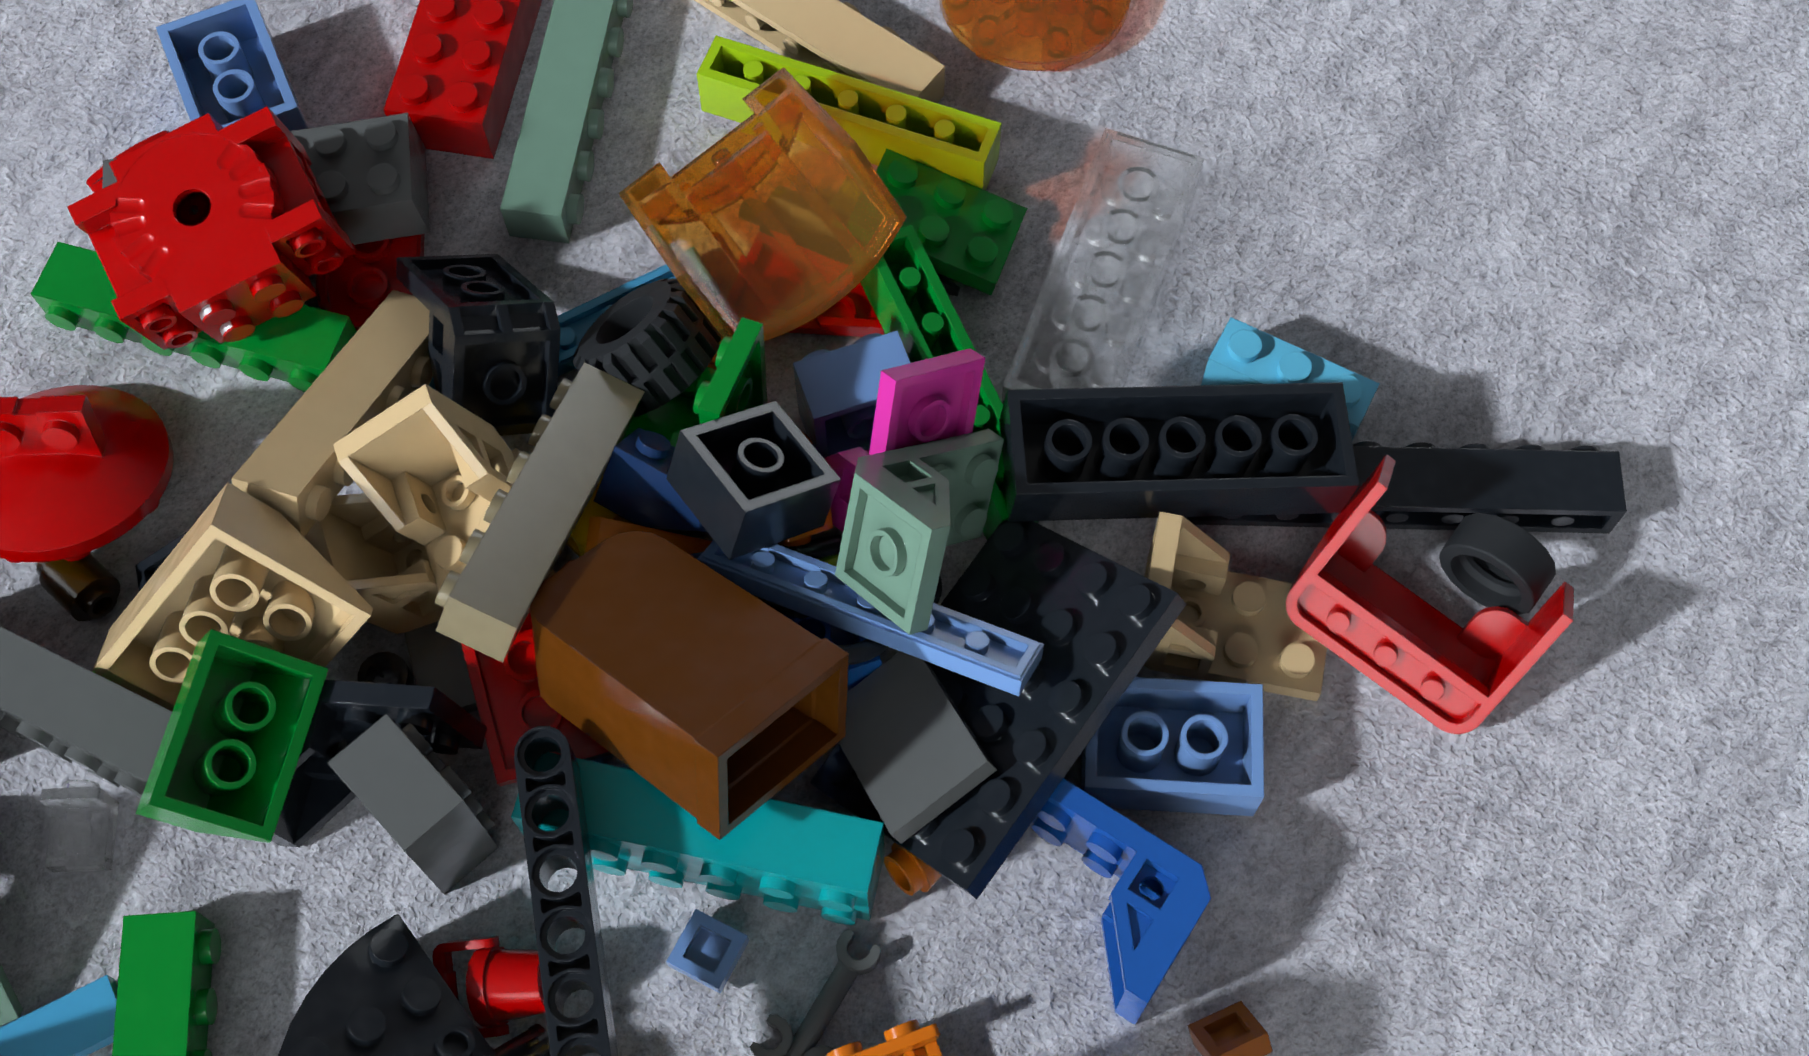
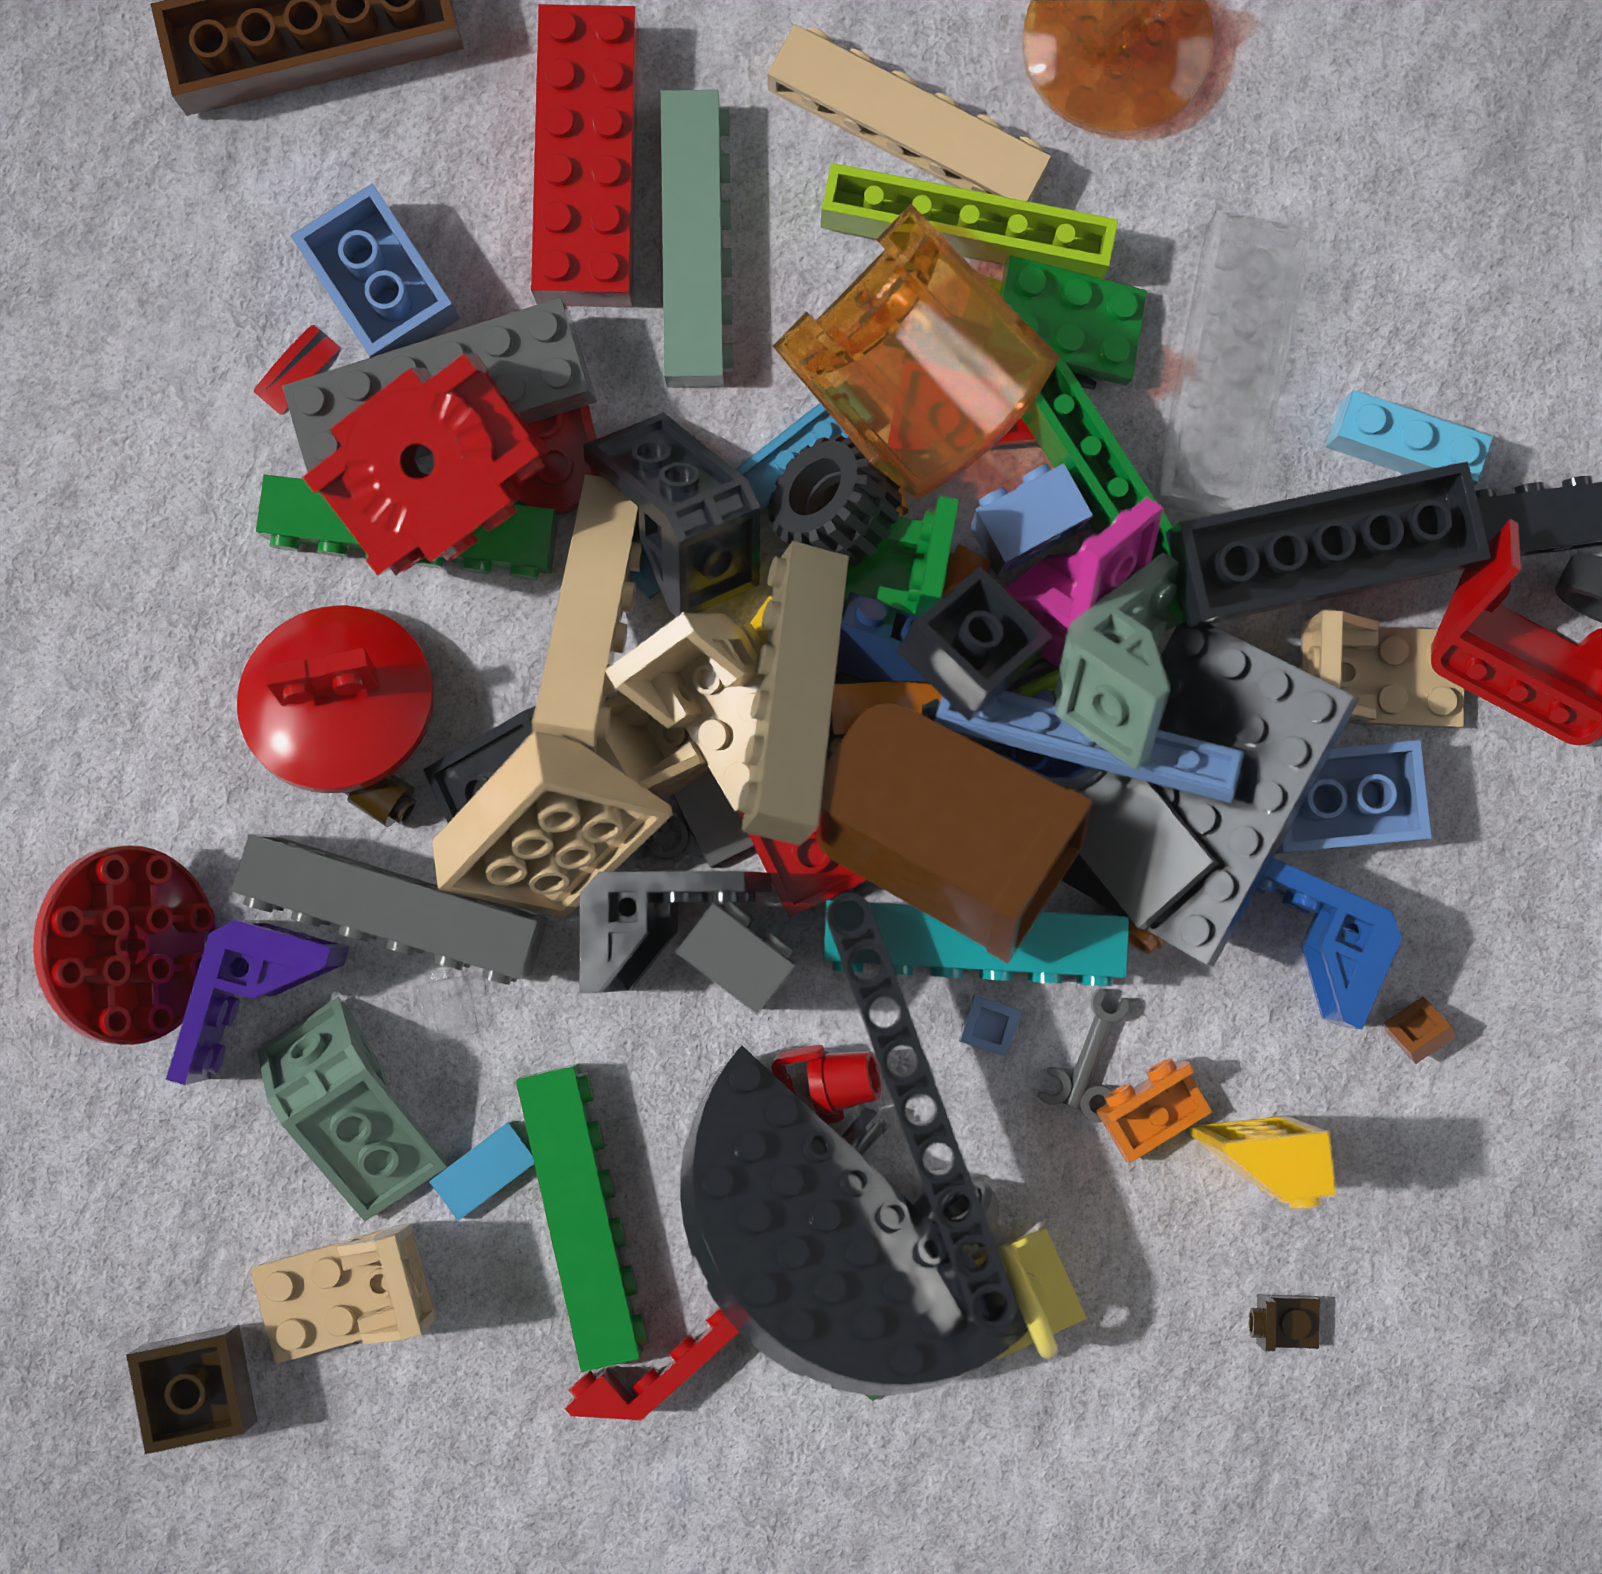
camera: 10 degrees left, 20 degrees up
(233, 739) = (583, 938): green slope -> none

